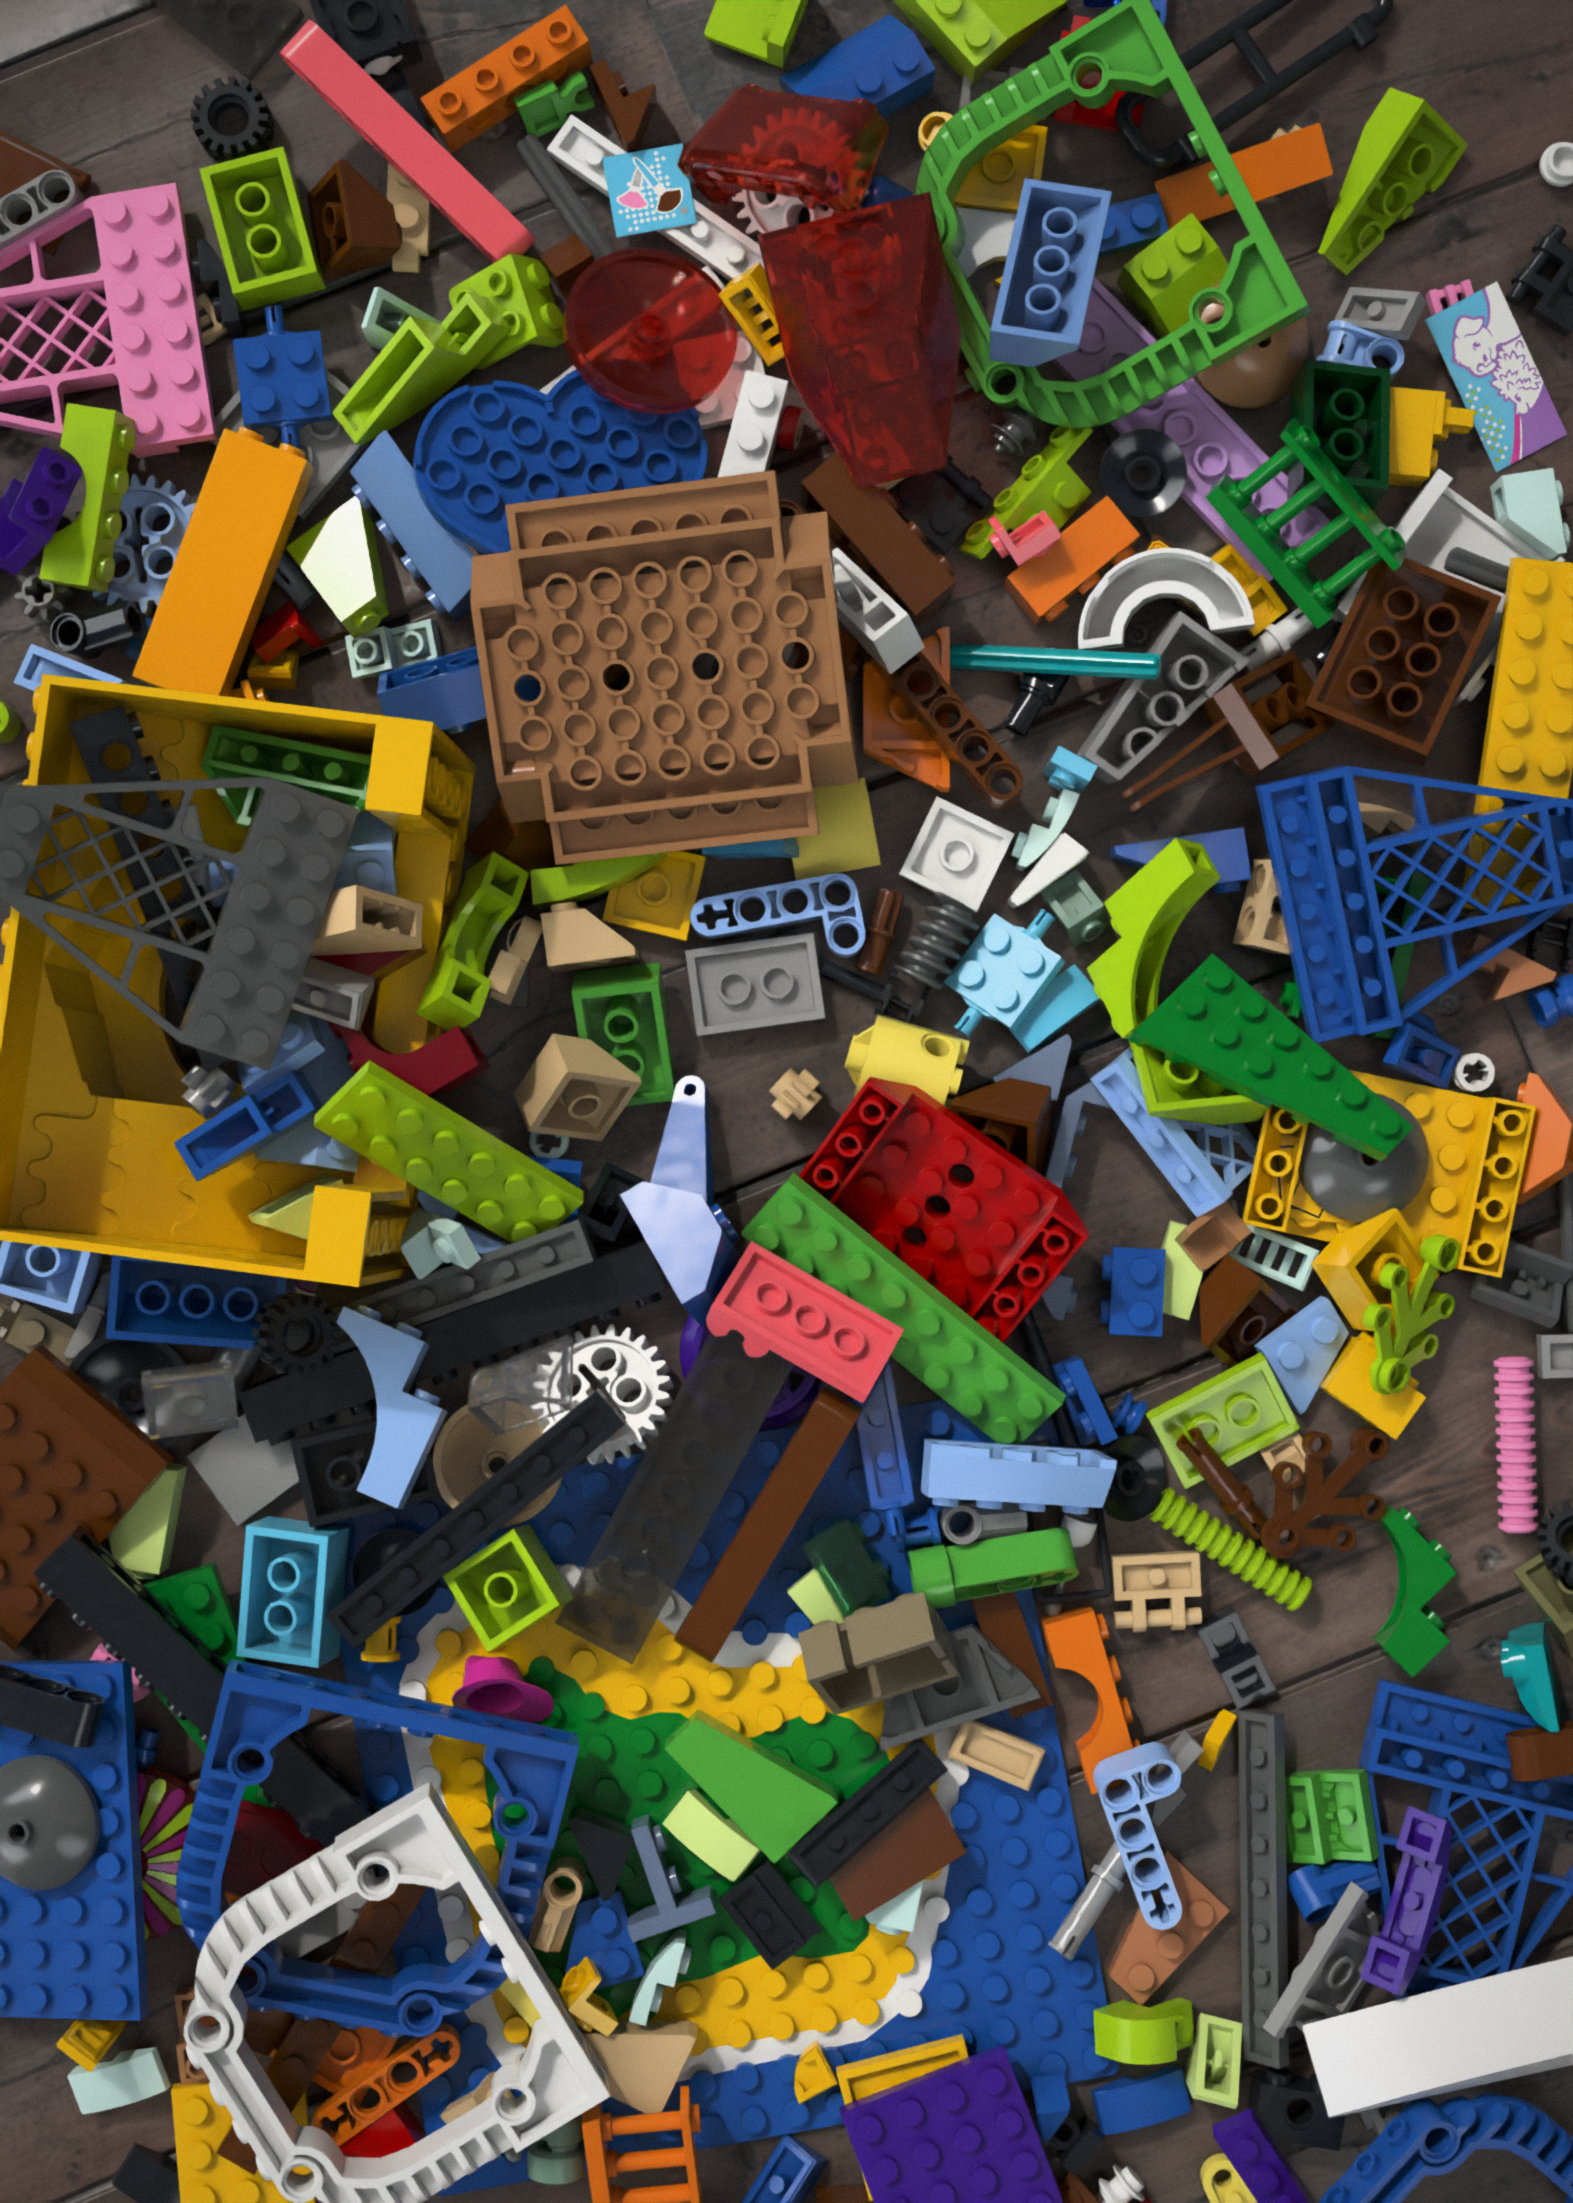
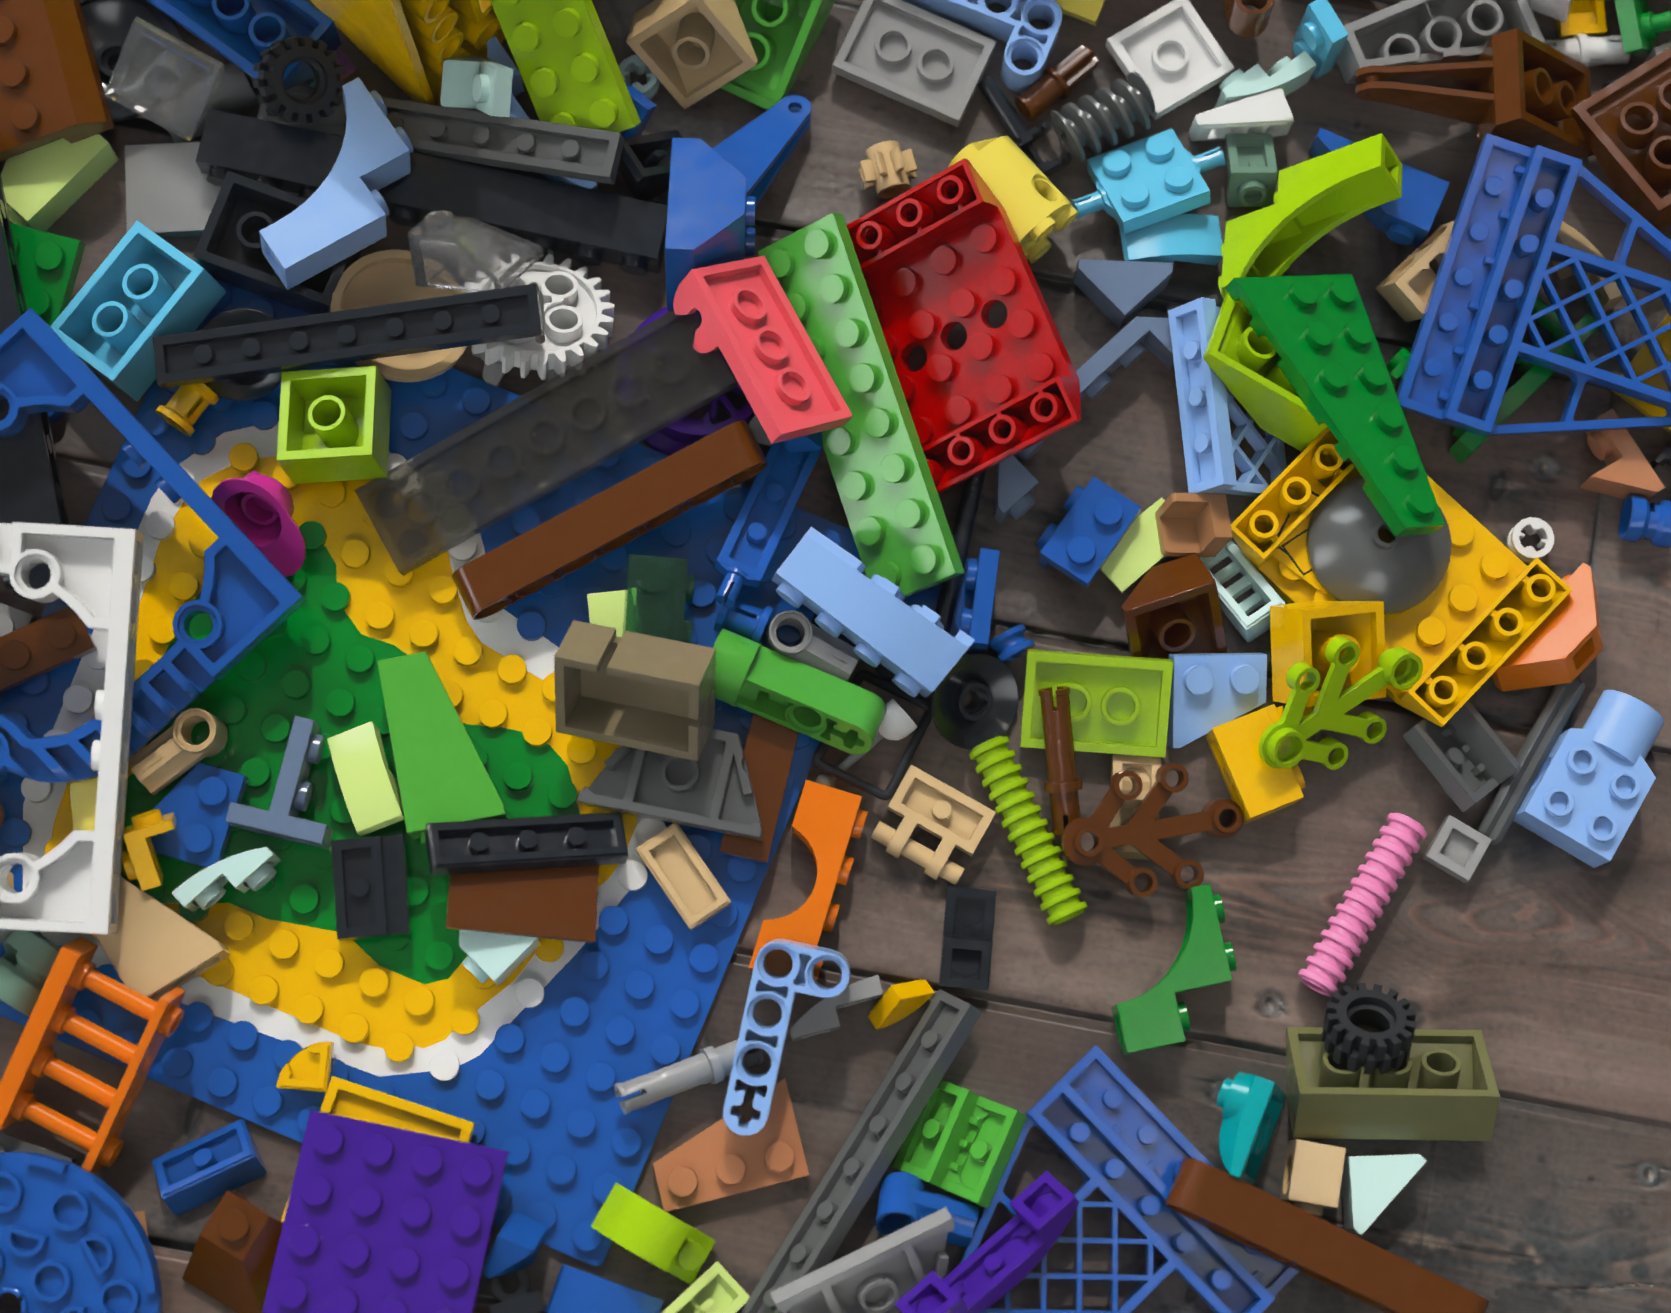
camera: 30 degrees right, 10 degrees down
(603, 1845) = (257, 726): black slope -> none
(1012, 1115) = (1078, 295): reddish brown slope -> none
(1421, 1053) = (1489, 485): blue slope -> none

